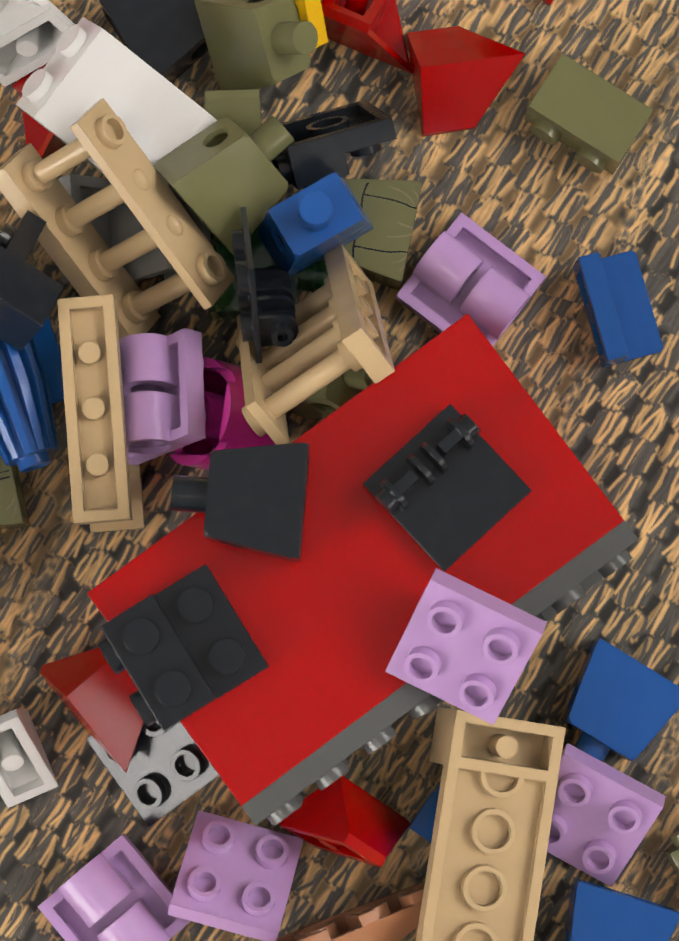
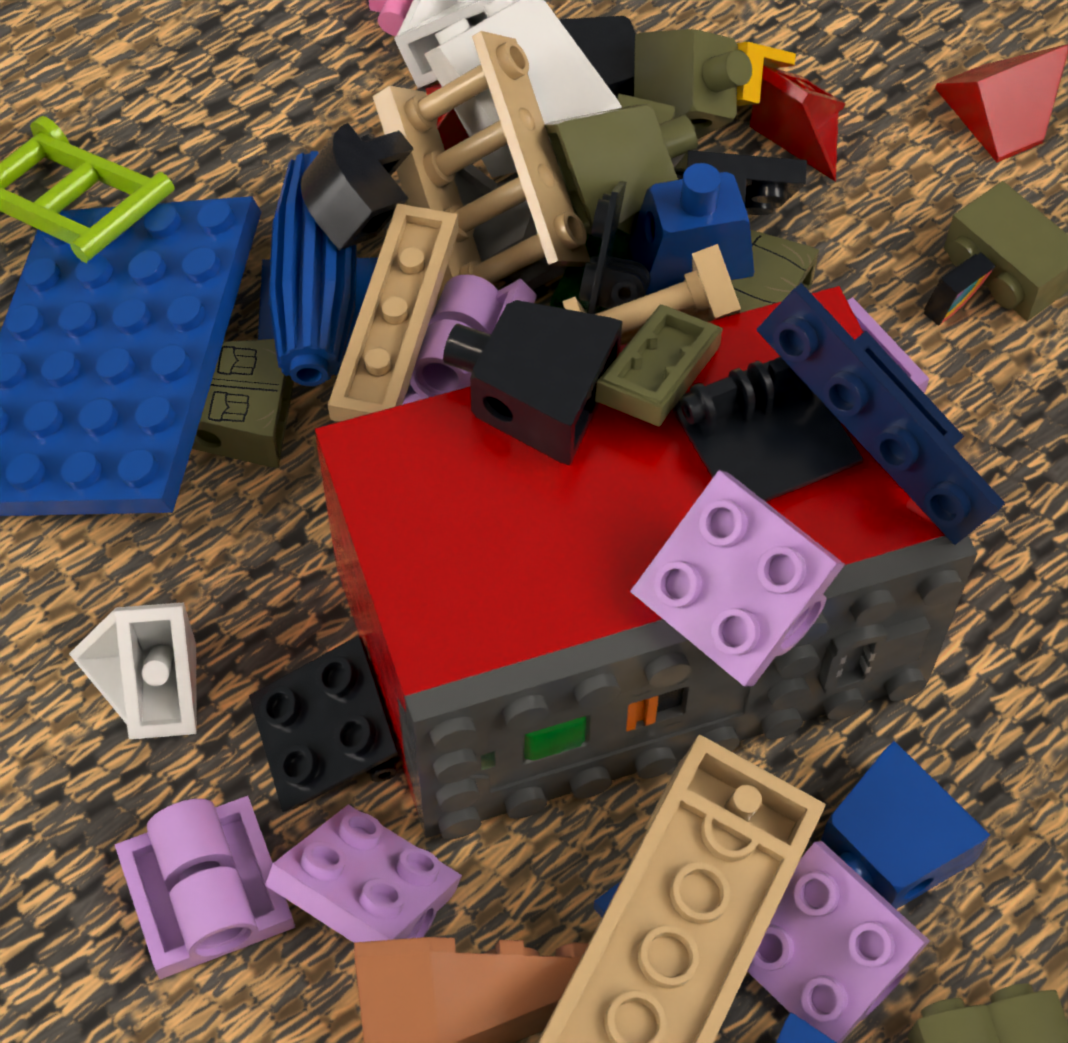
camera: 15 degrees right, 25 degrees down
(98, 701) = (292, 633): red slope -> none
(181, 649) = (399, 503): black plate -> none
(346, 456) = (658, 365): none -> olive plate
(347, 823) = (514, 855): red slope -> none
(457, 76) = (882, 191): red slope -> none
(542, 454) = (882, 412): none -> dark blue bracket
(545, 178) = (958, 288): none -> black tile
(617, 307) = (1001, 433): blue panel -> none

